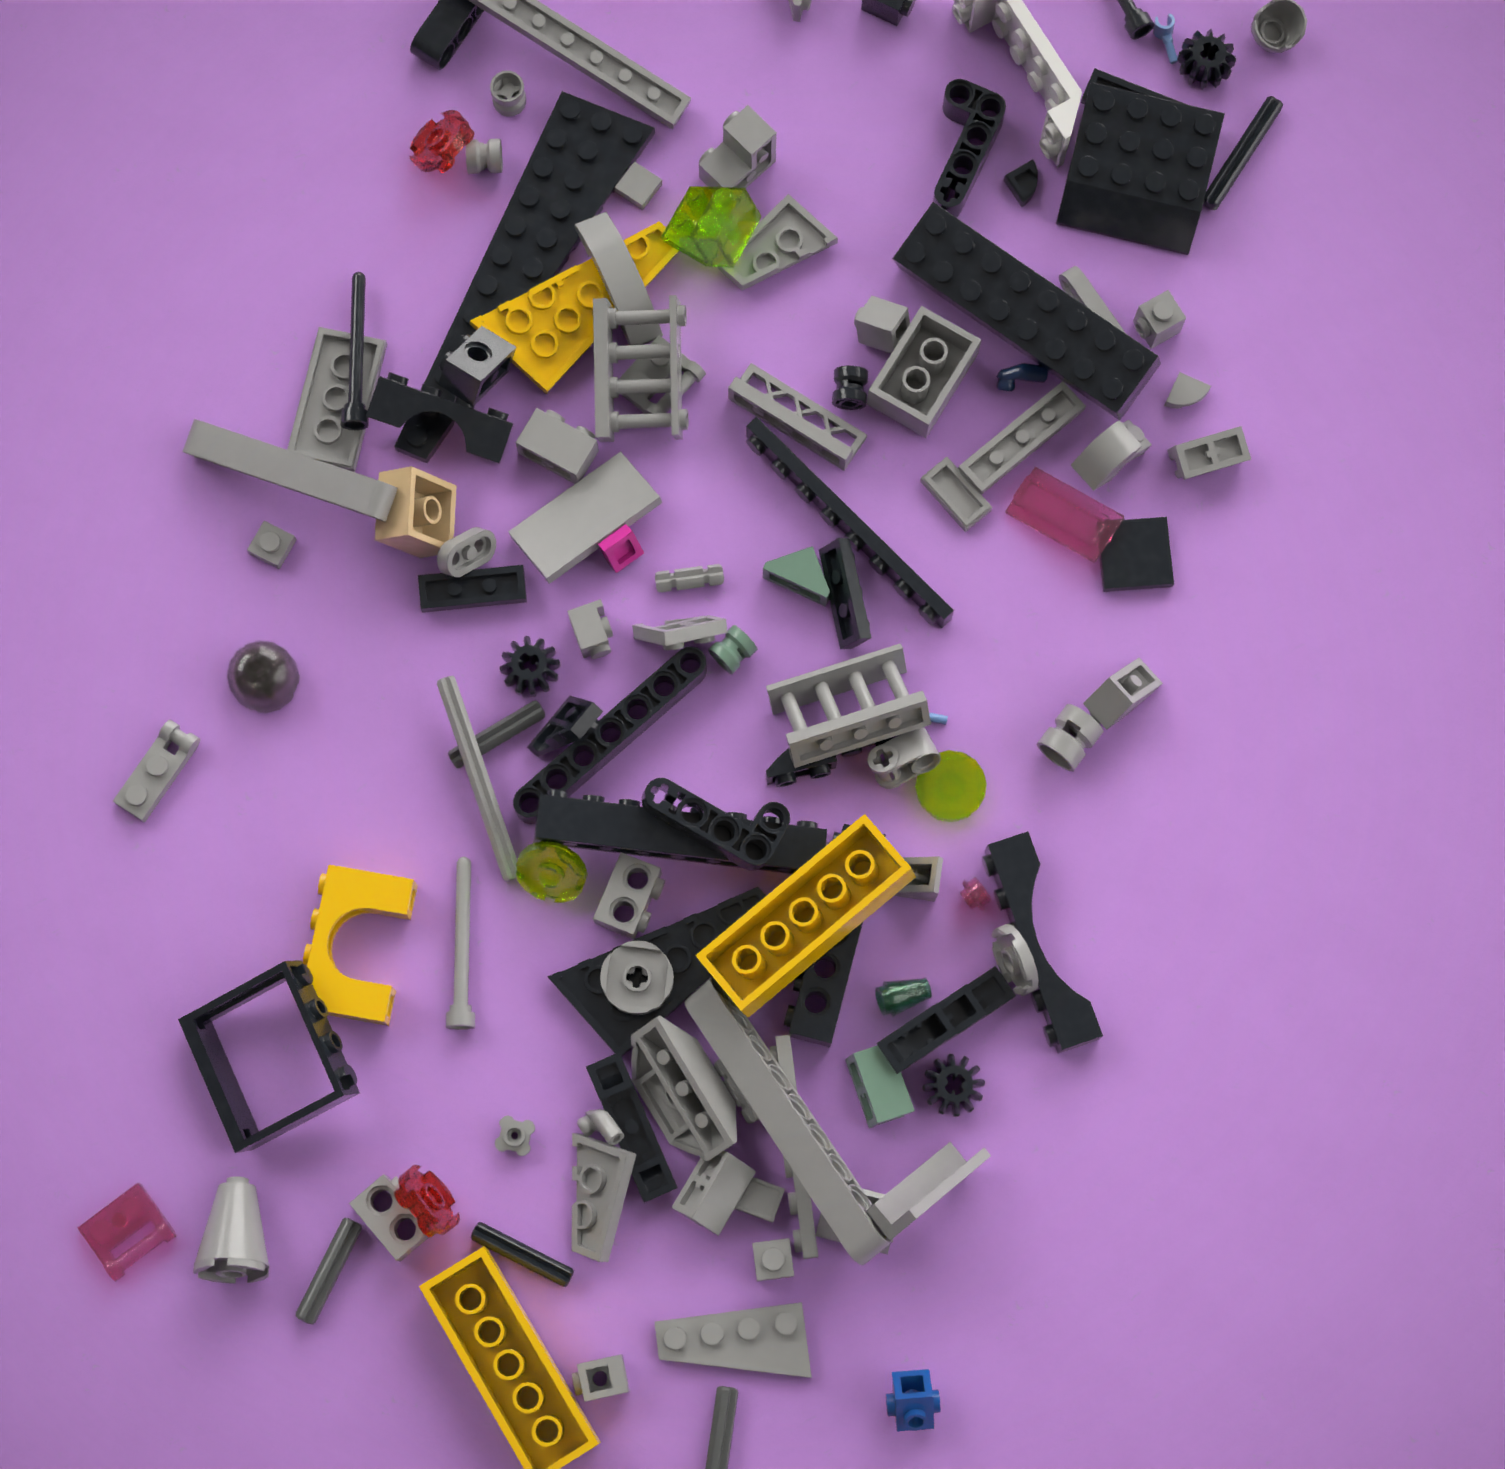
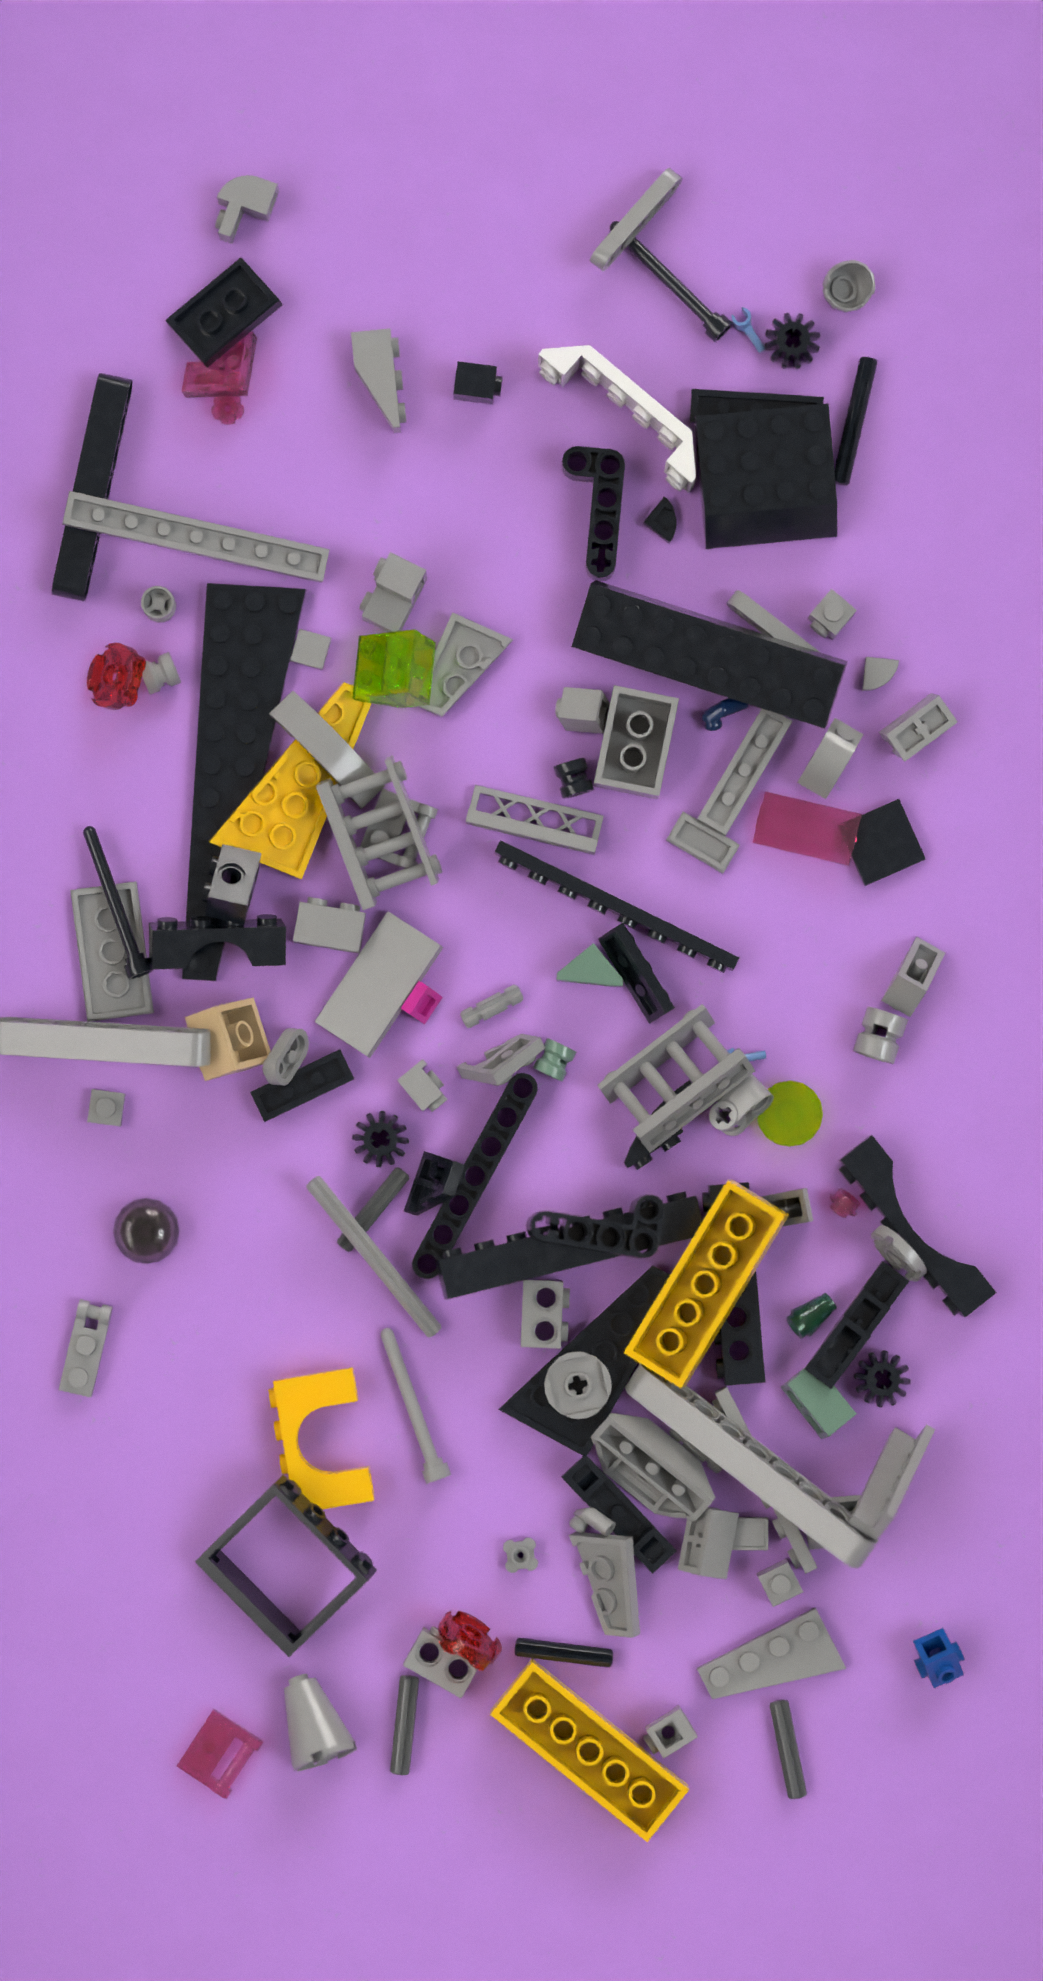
camera: 20 degrees left, 10 degrees up
(551, 871) = (469, 1318): clear neon green tile -> none

